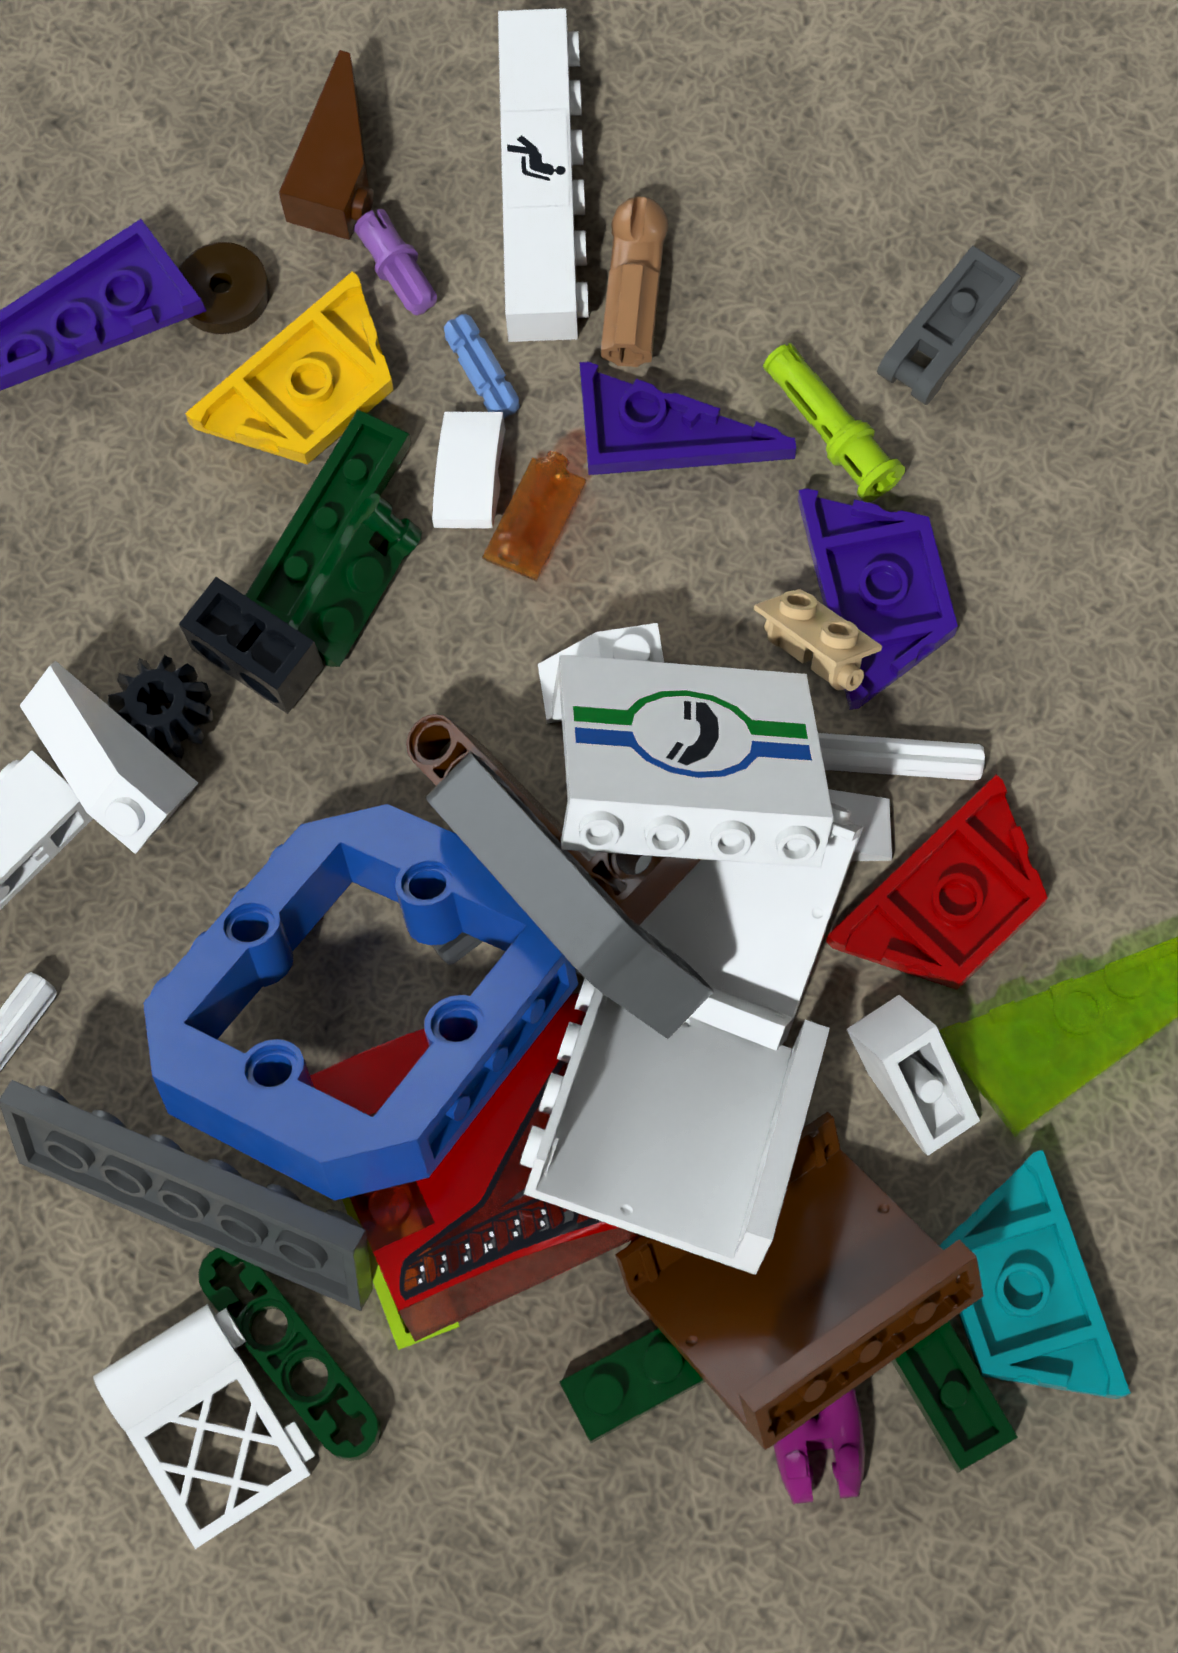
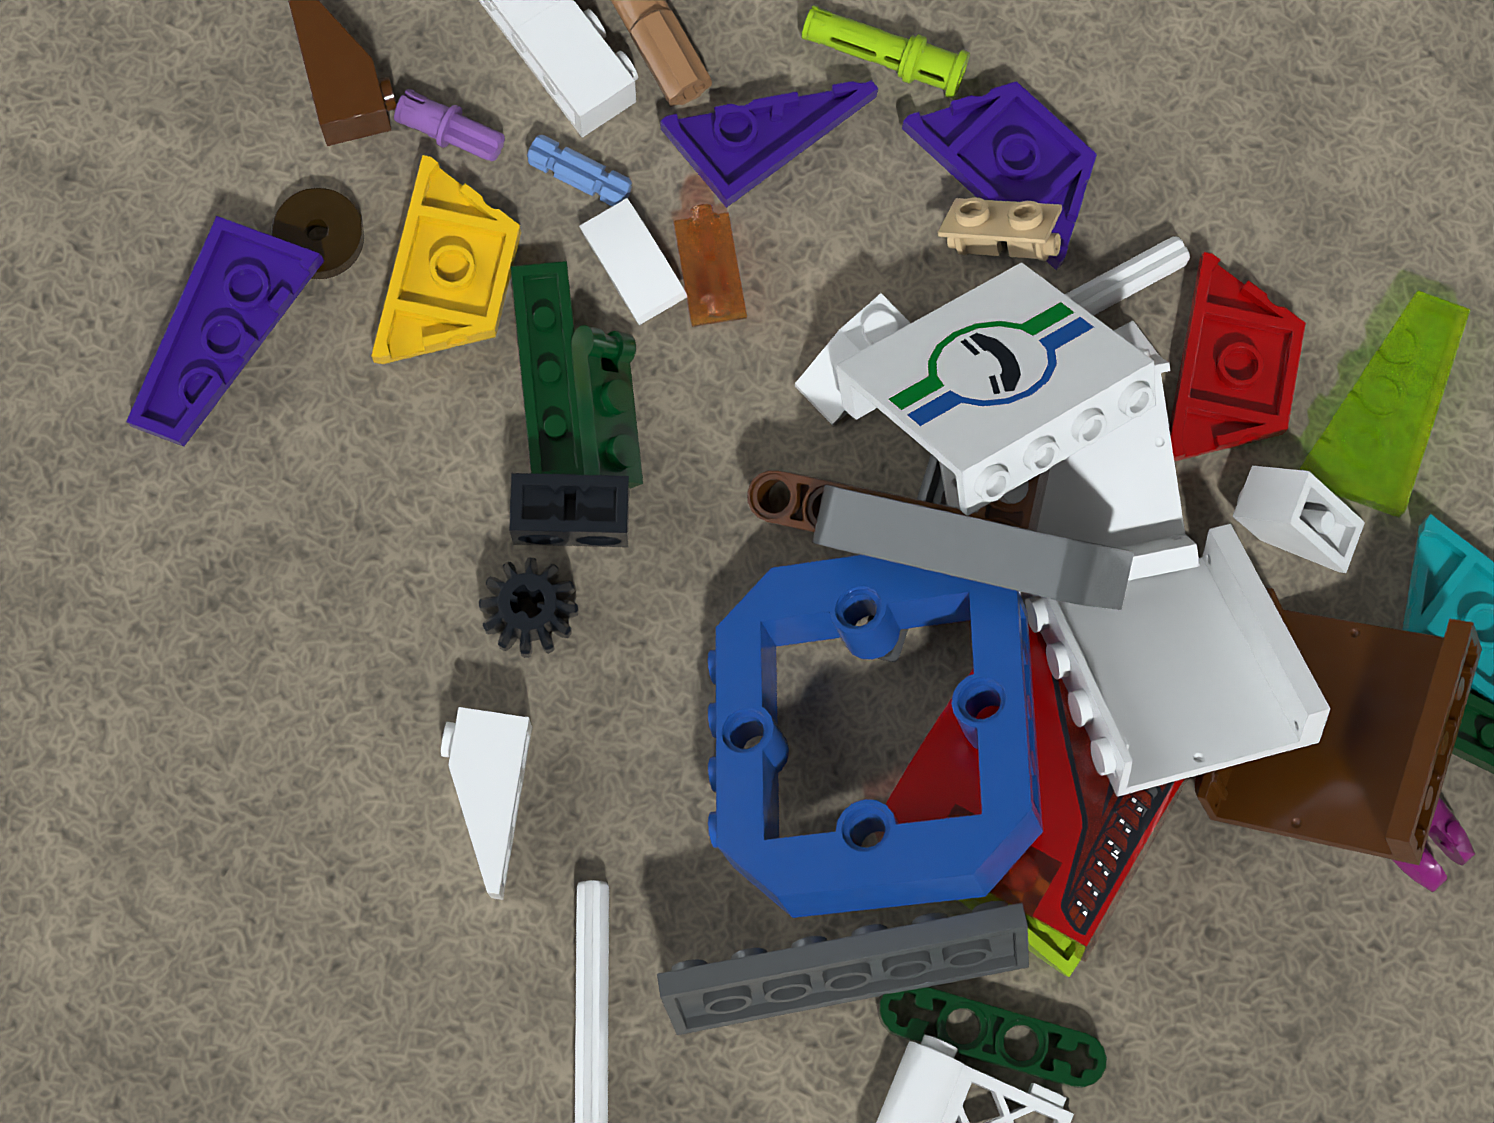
camera: 45 degrees left, 5 degrees up
(104, 759) = (526, 676): white slope -> none
(628, 1384) = (1255, 885): dark green plate -> none

